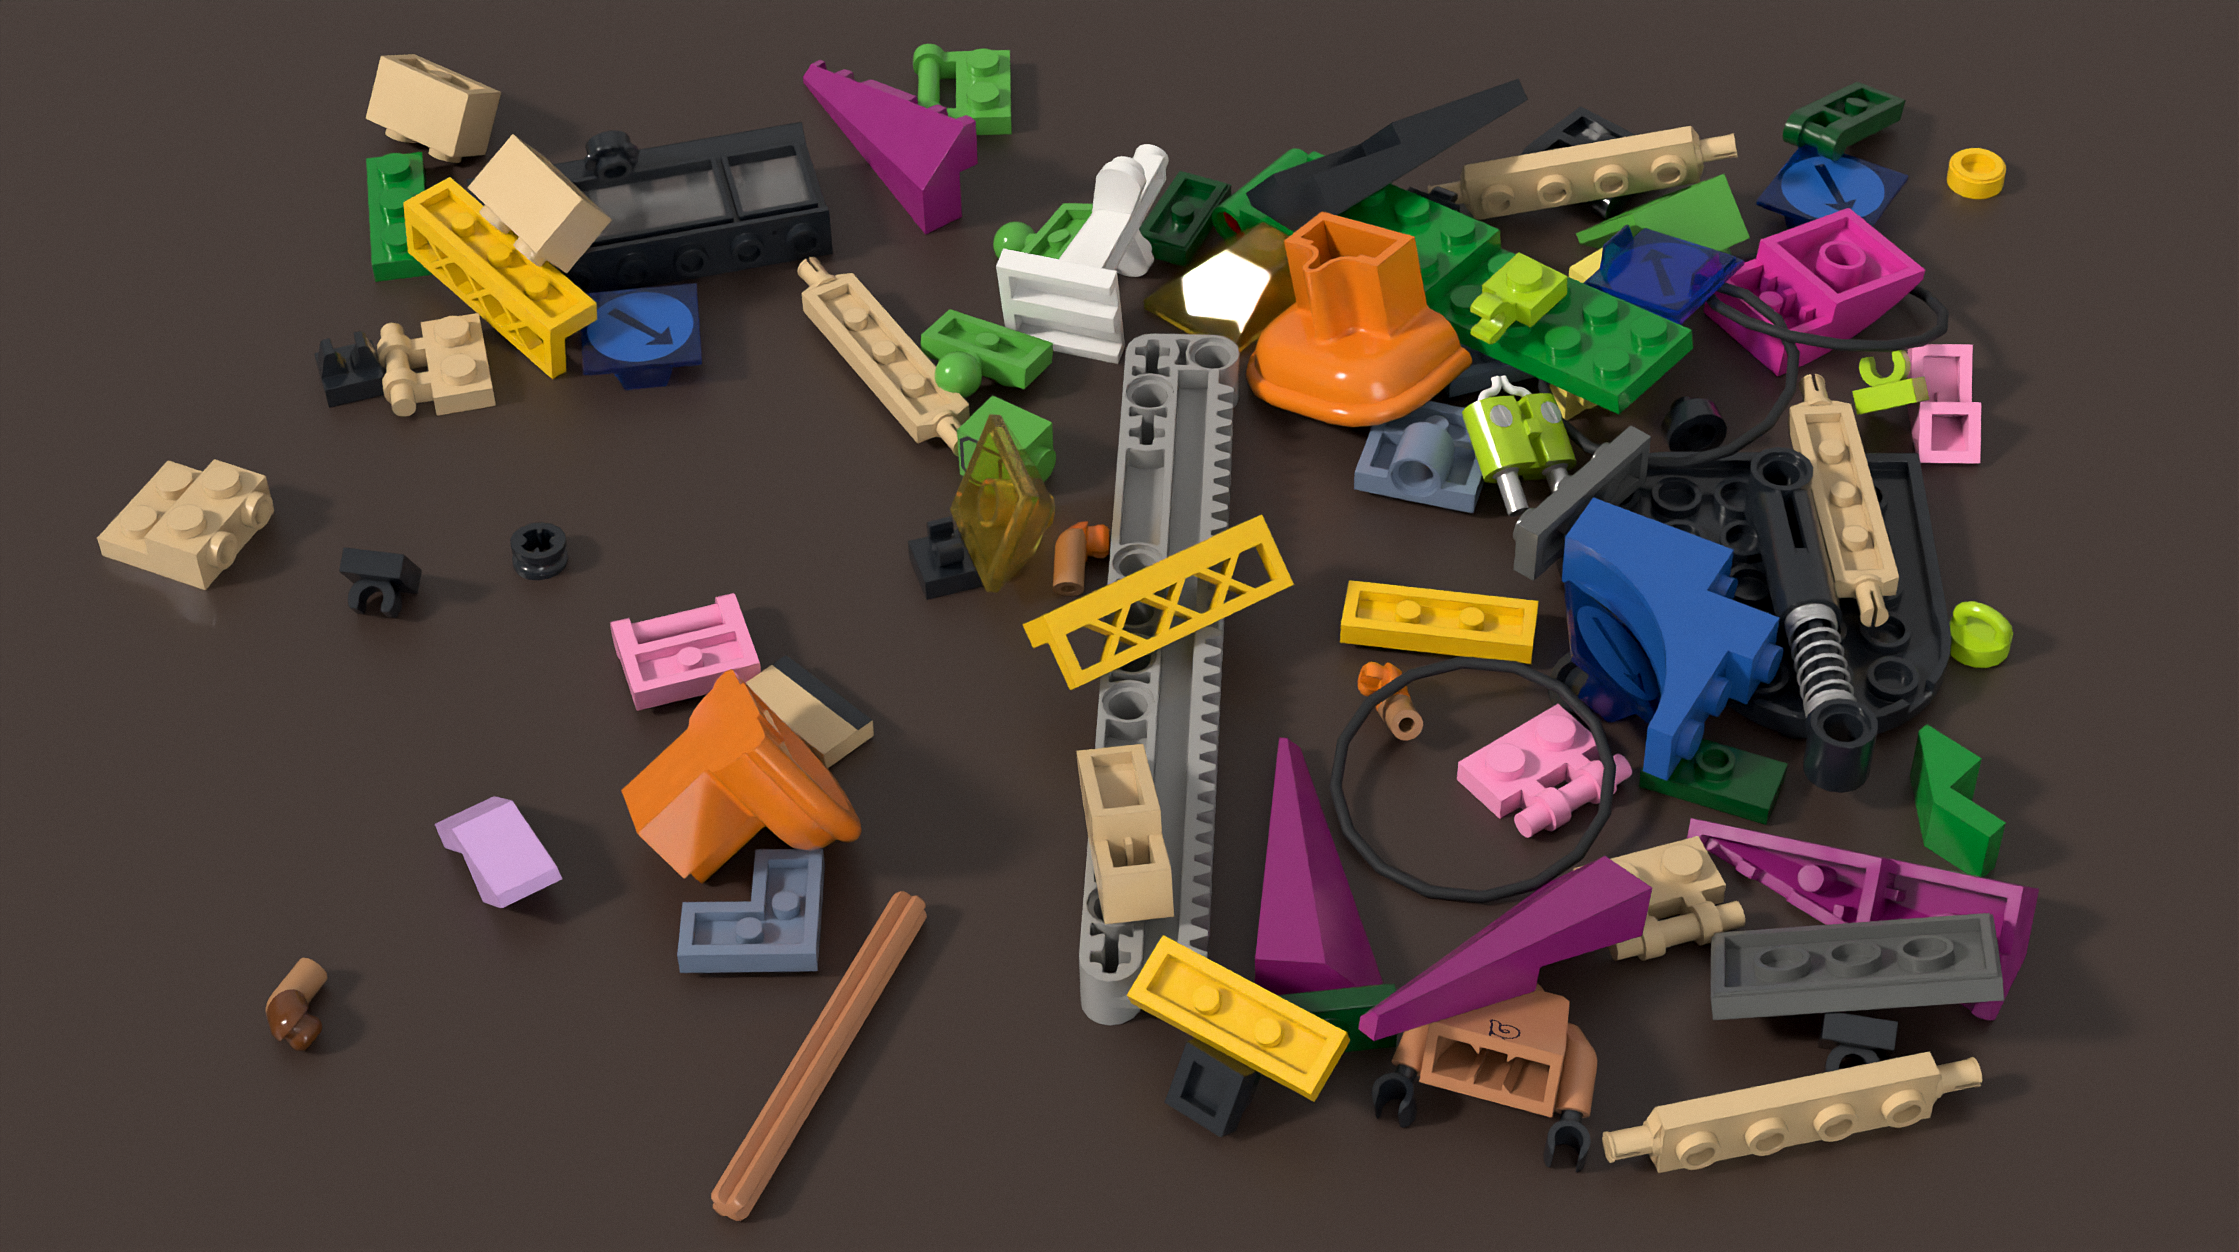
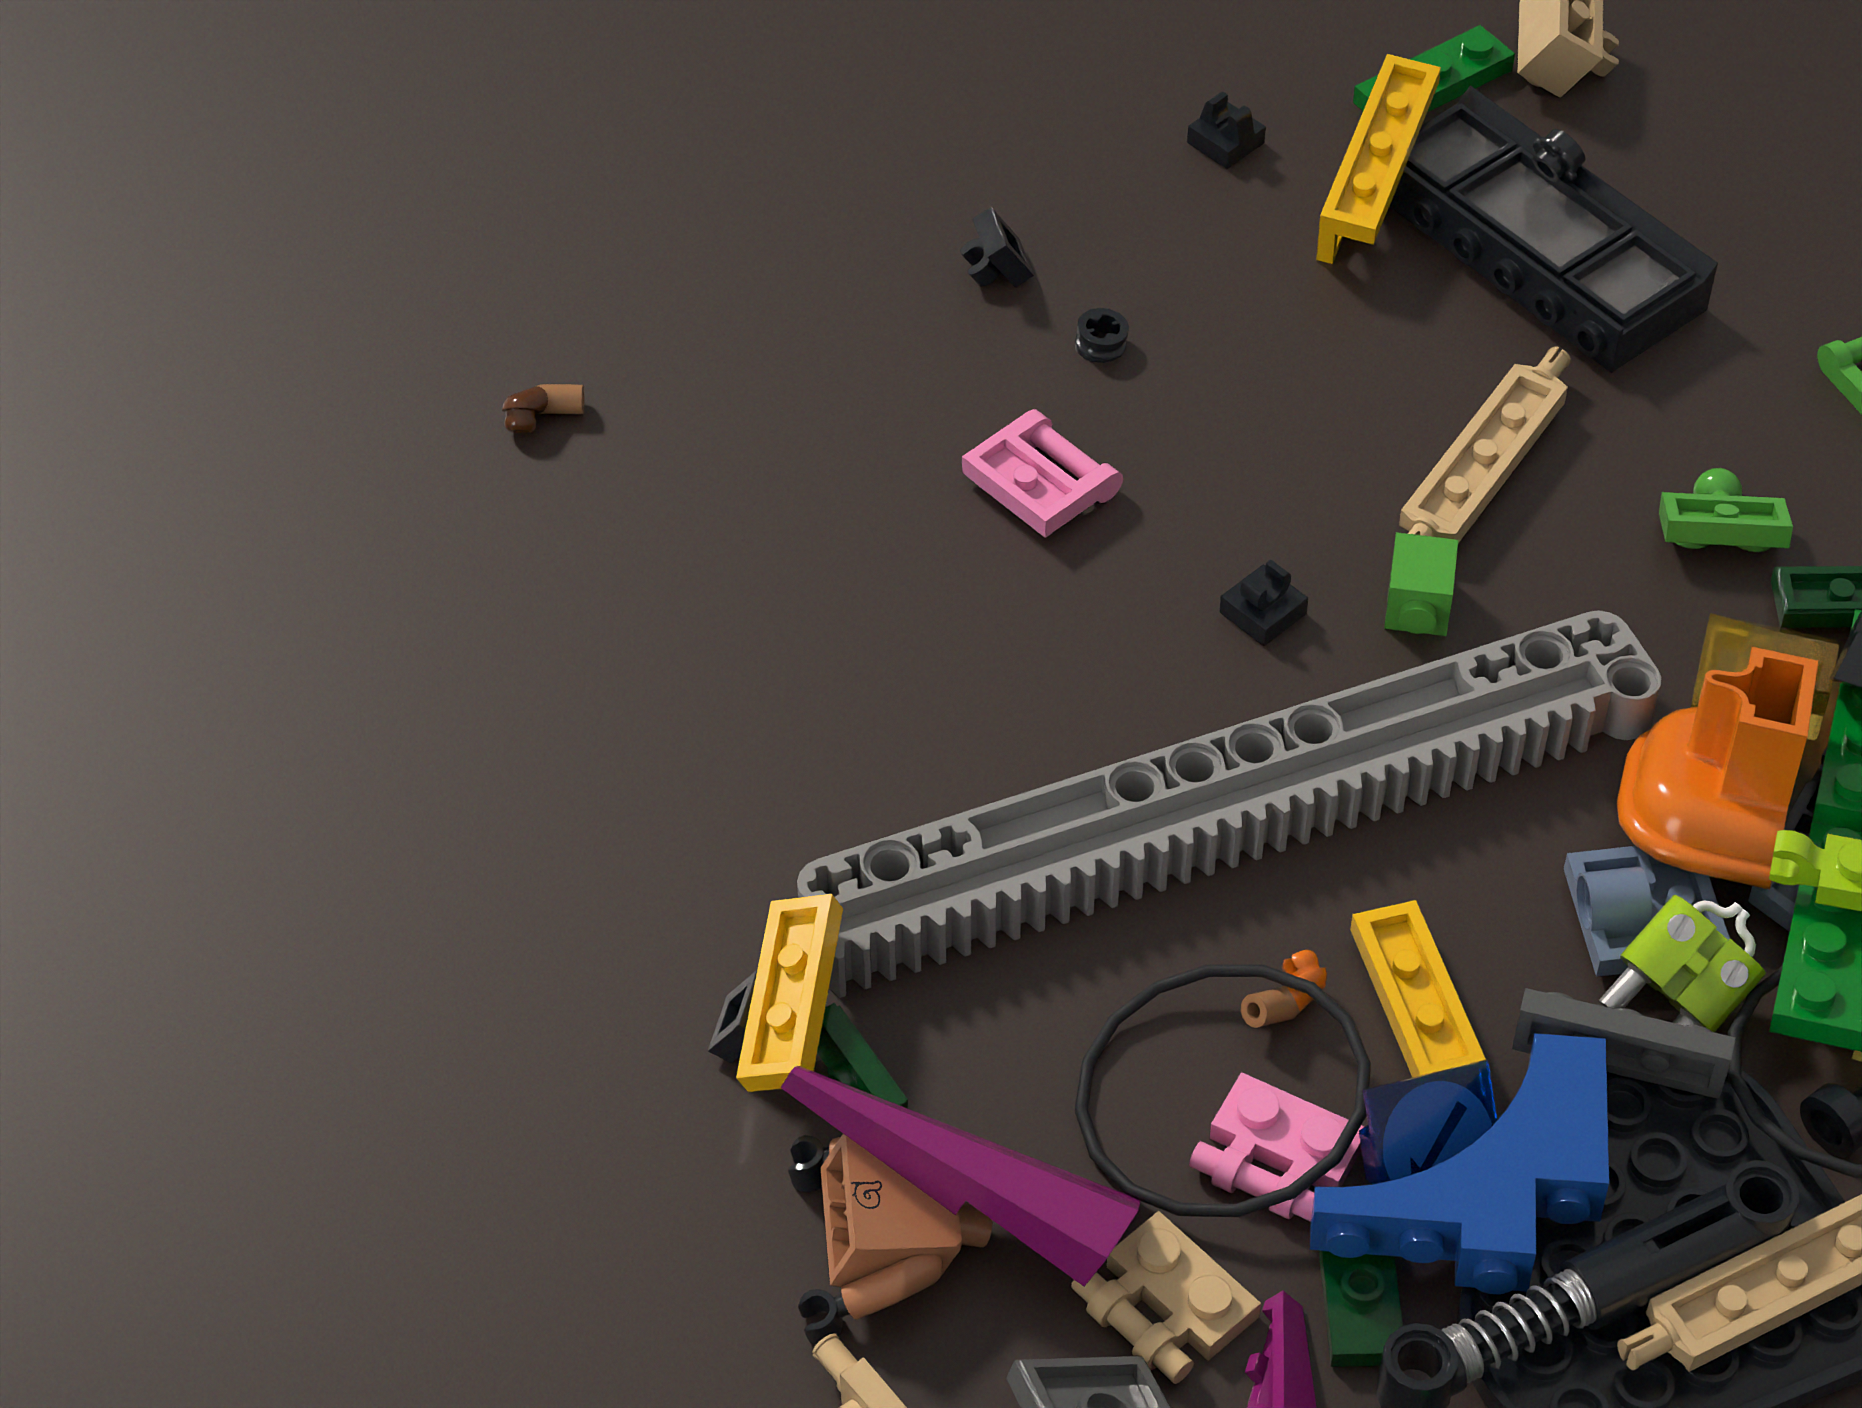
camera: 65 degrees right, 5 degrees up
(189, 521) = (995, 120): tan plate -> none
(455, 361) = (1277, 194): tan plate -> none
(499, 851) = (745, 448): lavender slope -> none
(539, 205) = (1428, 130): tan brick -> none
(643, 334) = (1391, 282): piece -> none
(732, 778) = (884, 567): orange piece -> none
(771, 931) = (770, 656): sand blue plate -> none
(812, 710) = (1025, 581): tan tile -> none
(818, 1057) = (661, 741): nougat axle -> none
(906, 144) = (1771, 347): magenta wedge -> none
(979, 348) = (1541, 519): bright green plate -> none
(1001, 505) = (1324, 607): clear yellow slope -> none
(1072, 552) = (1320, 682): medium nougat arm -> none
(1078, 296) = (1641, 542): white piece -> none
(1125, 834) = (953, 829): tan slope -> none
(1141, 587) = (1267, 731): yellow fence -> none
(1308, 915) = (976, 1020): magenta wedge -> none

